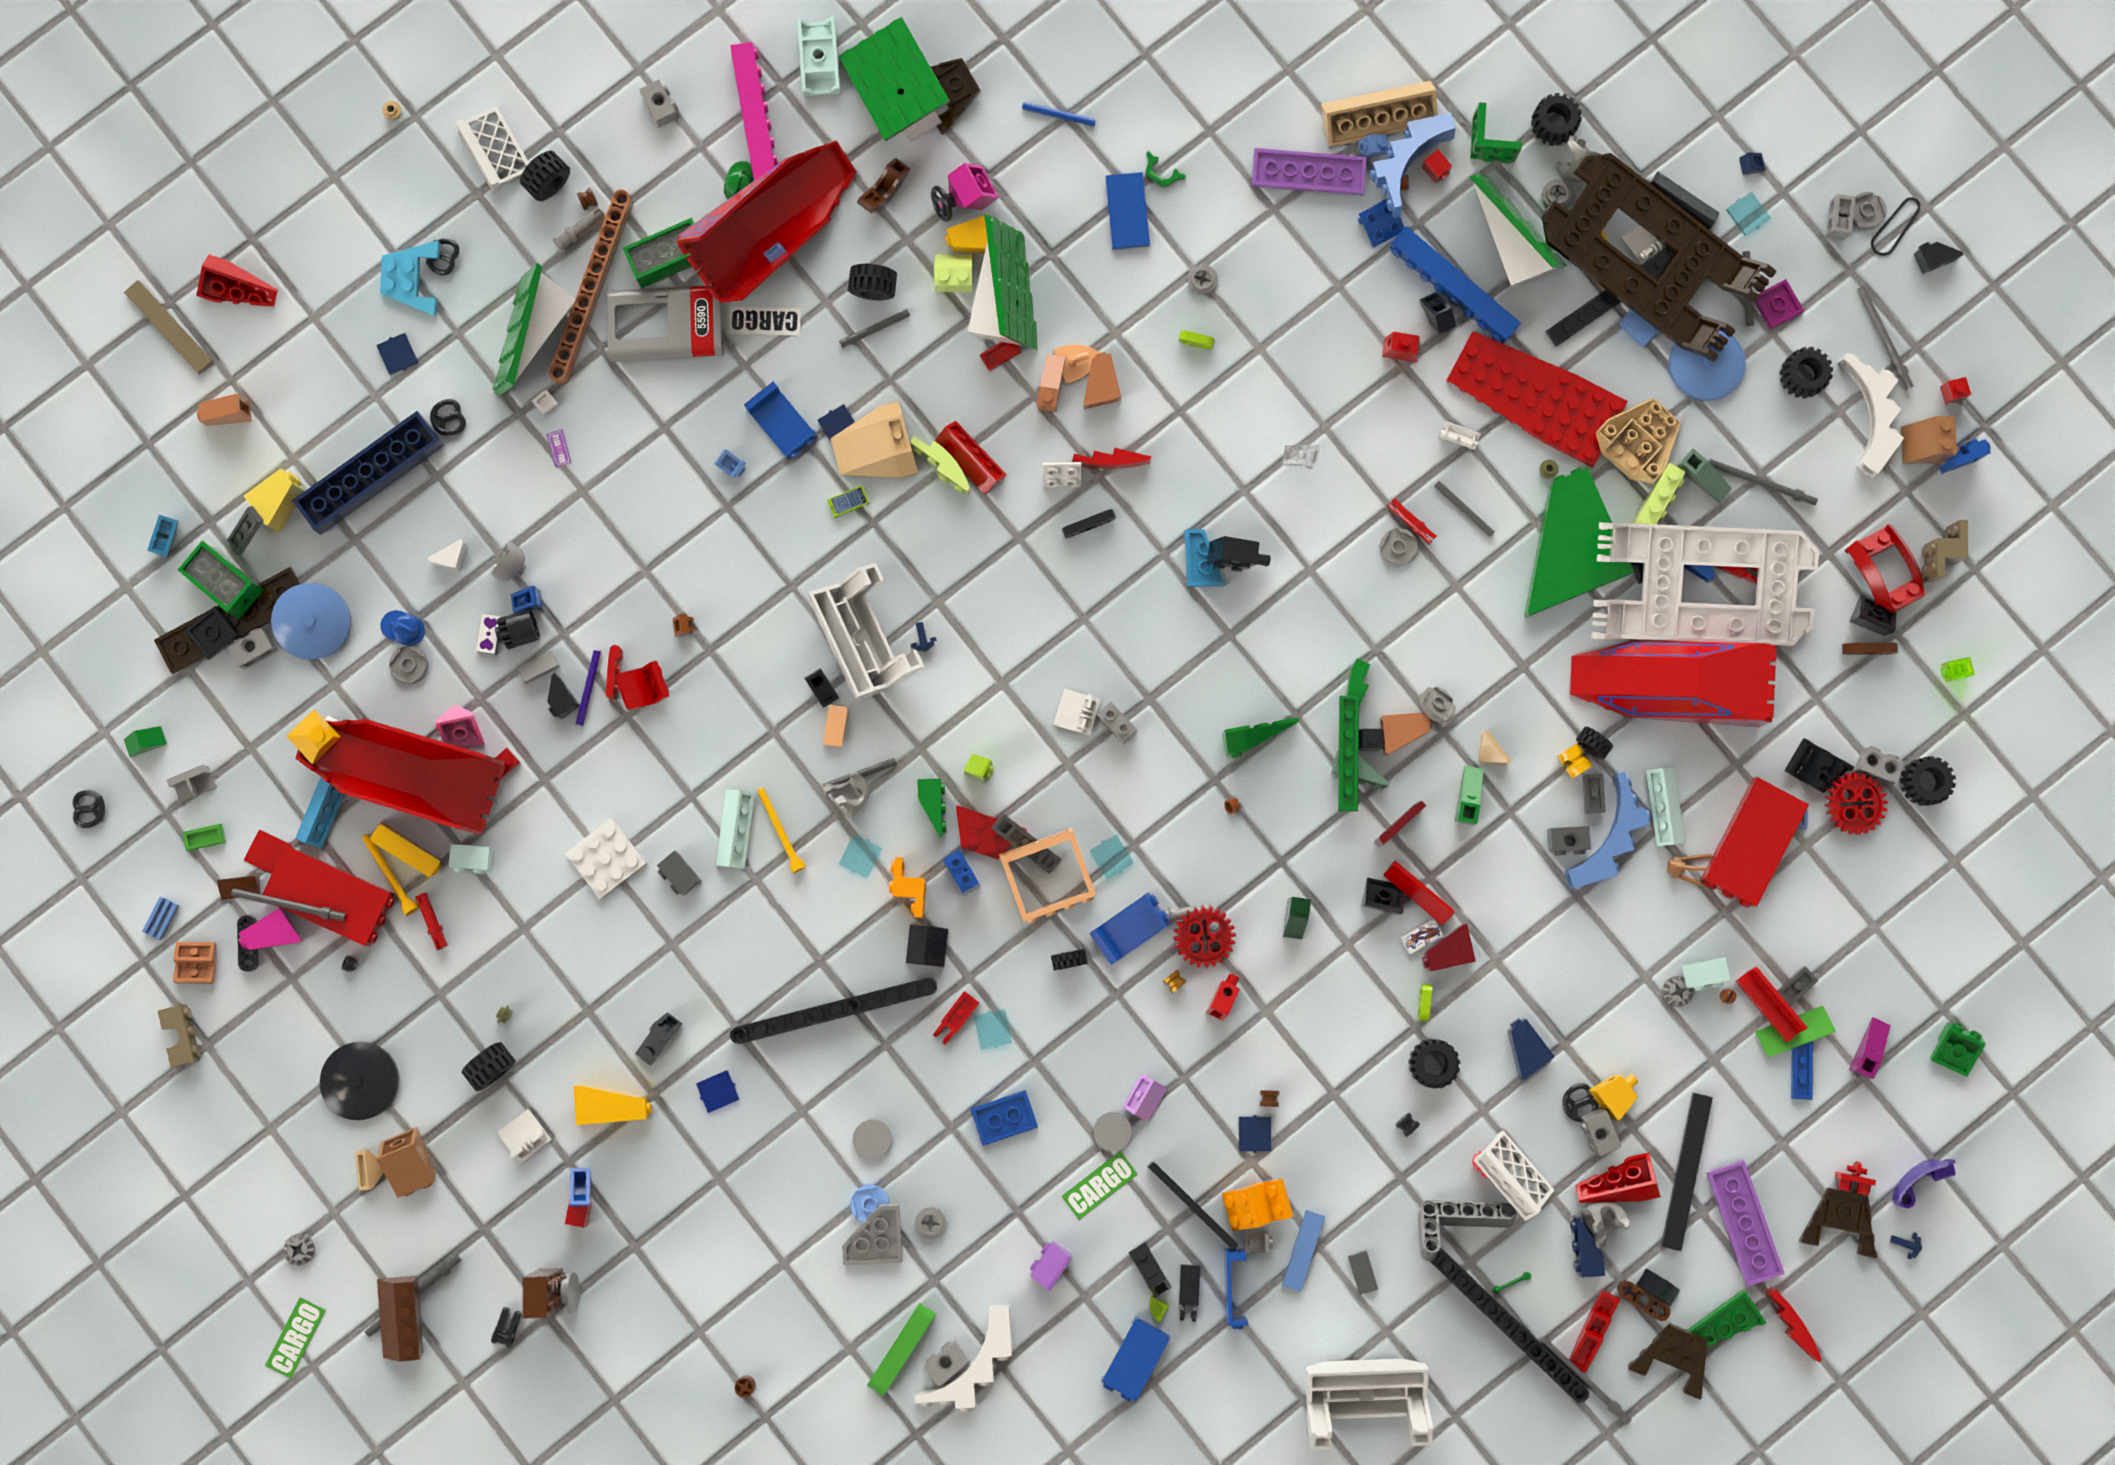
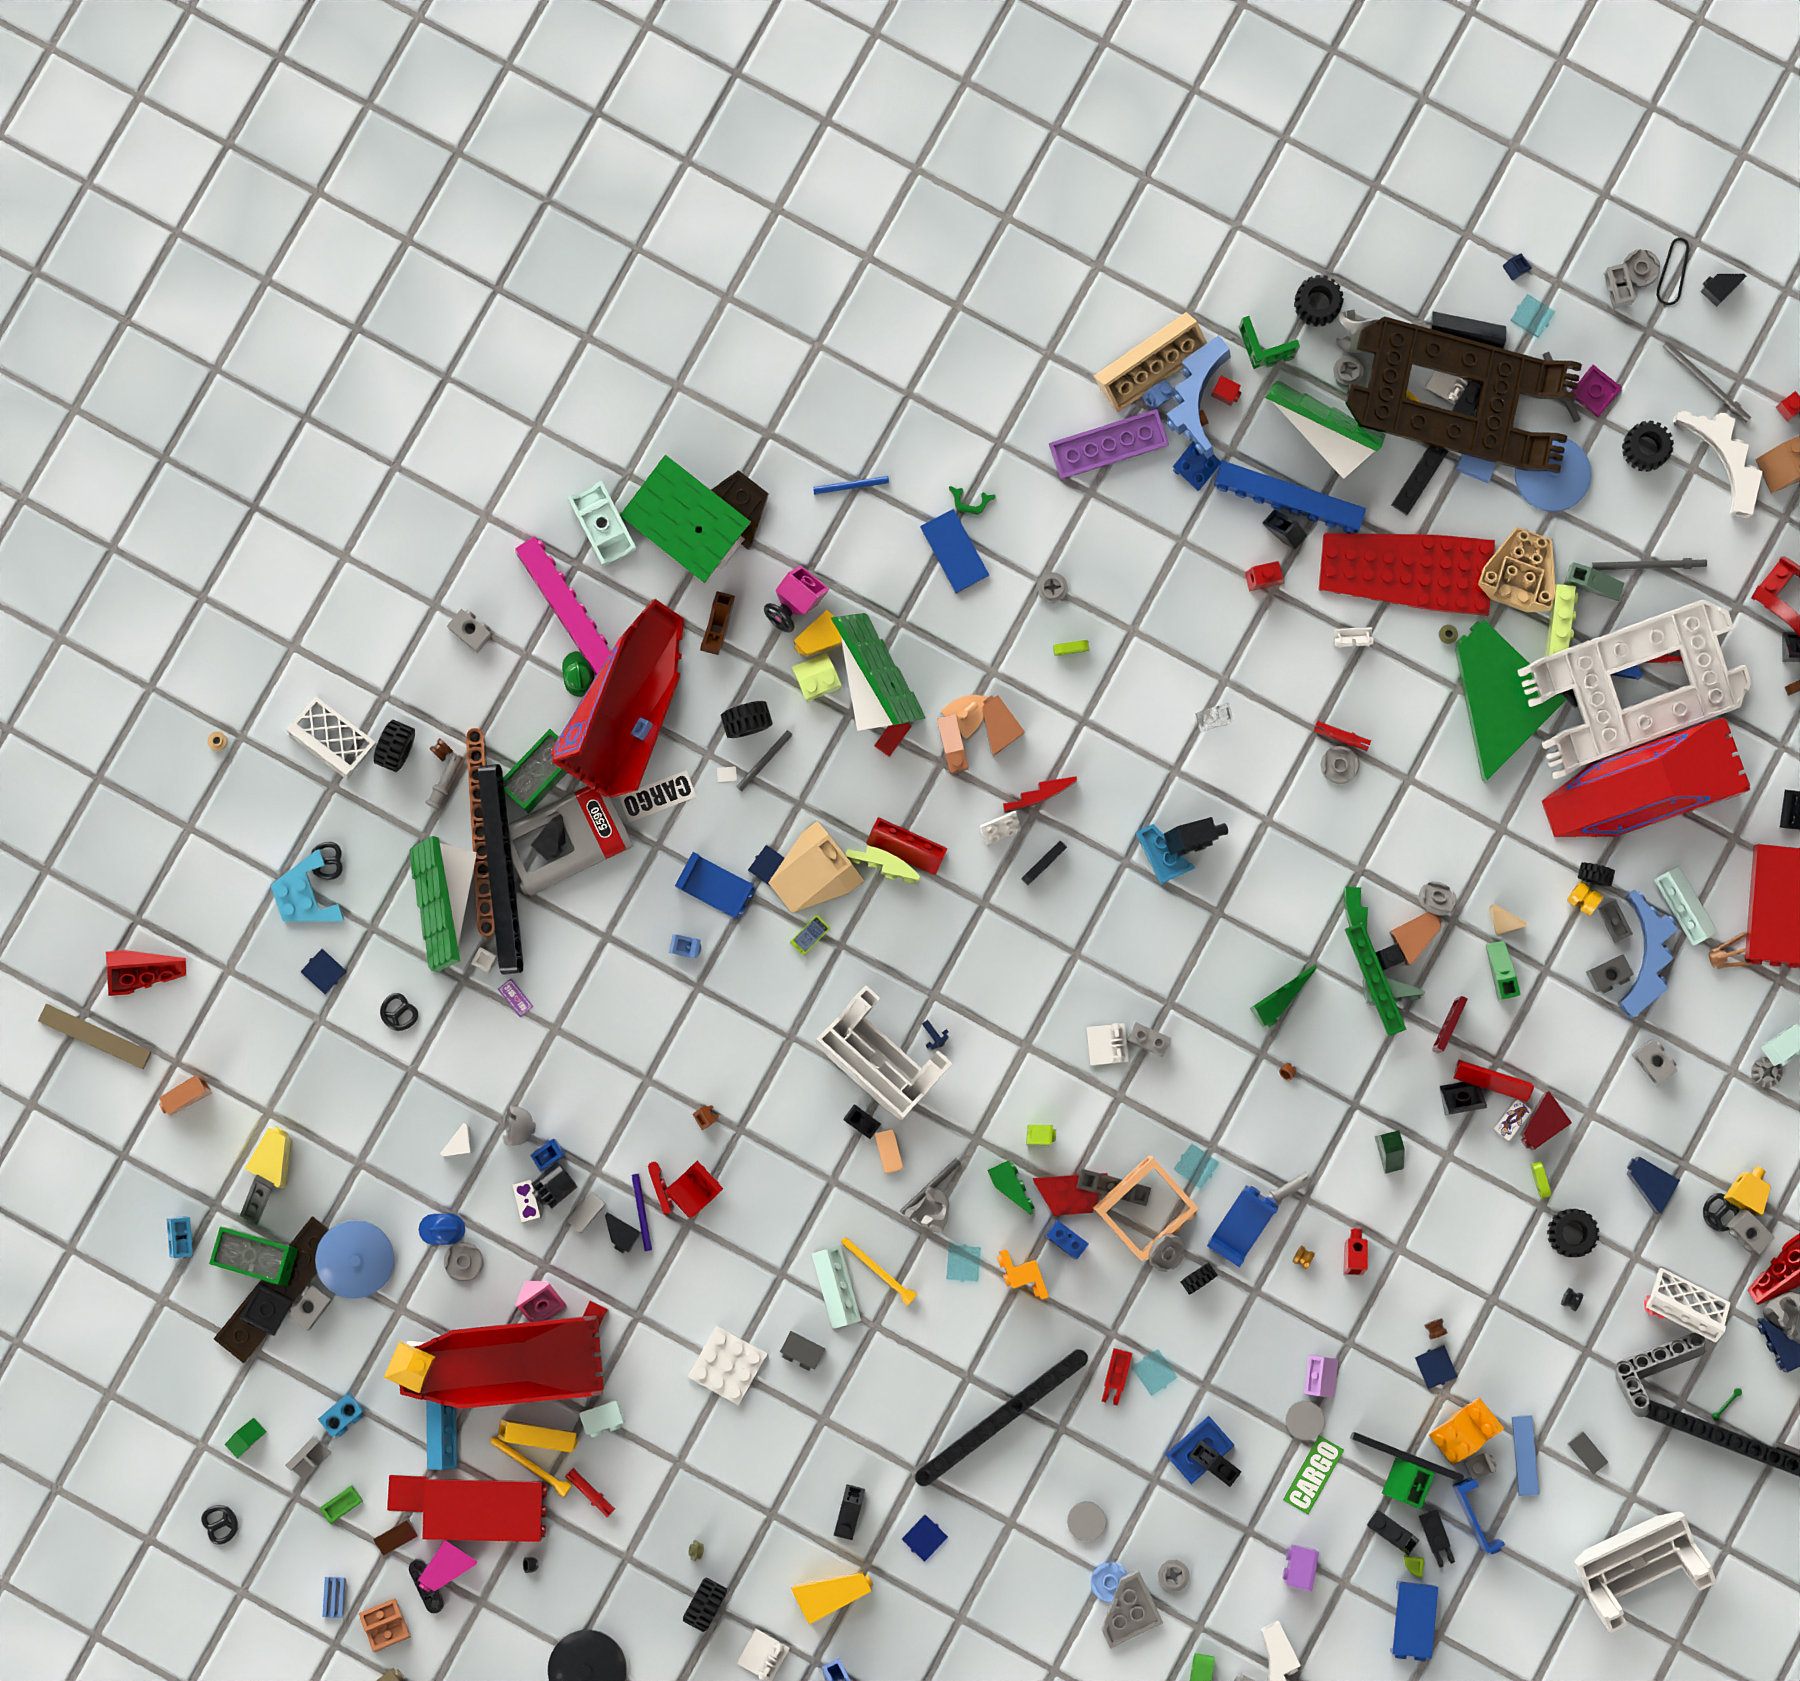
camera: 25 degrees left, 0 degrees up
(238, 753) = (339, 1412): none -> dark azure brick
(325, 912) = (490, 1526): dark grey bar -> none
(368, 473) = (348, 1096): dark blue brick -> none
(592, 325) = (500, 869): none -> black beam
(650, 317) = (551, 839): none -> black slope
(835, 326) = (726, 774): none -> white sticker
(927, 945) = (1060, 1321): black slope -> none
(1012, 1136) = (1215, 1463): none -> black bracket
(1050, 924) = (1167, 1252): none -> light grey tile
(1183, 1230) = (1408, 1483): none -> green slope
(1221, 934) = (1298, 1212): red gear -> none
(1465, 509) = (1385, 703): dark grey piece -> none
(1568, 931) = (1644, 1058): none -> light grey brick

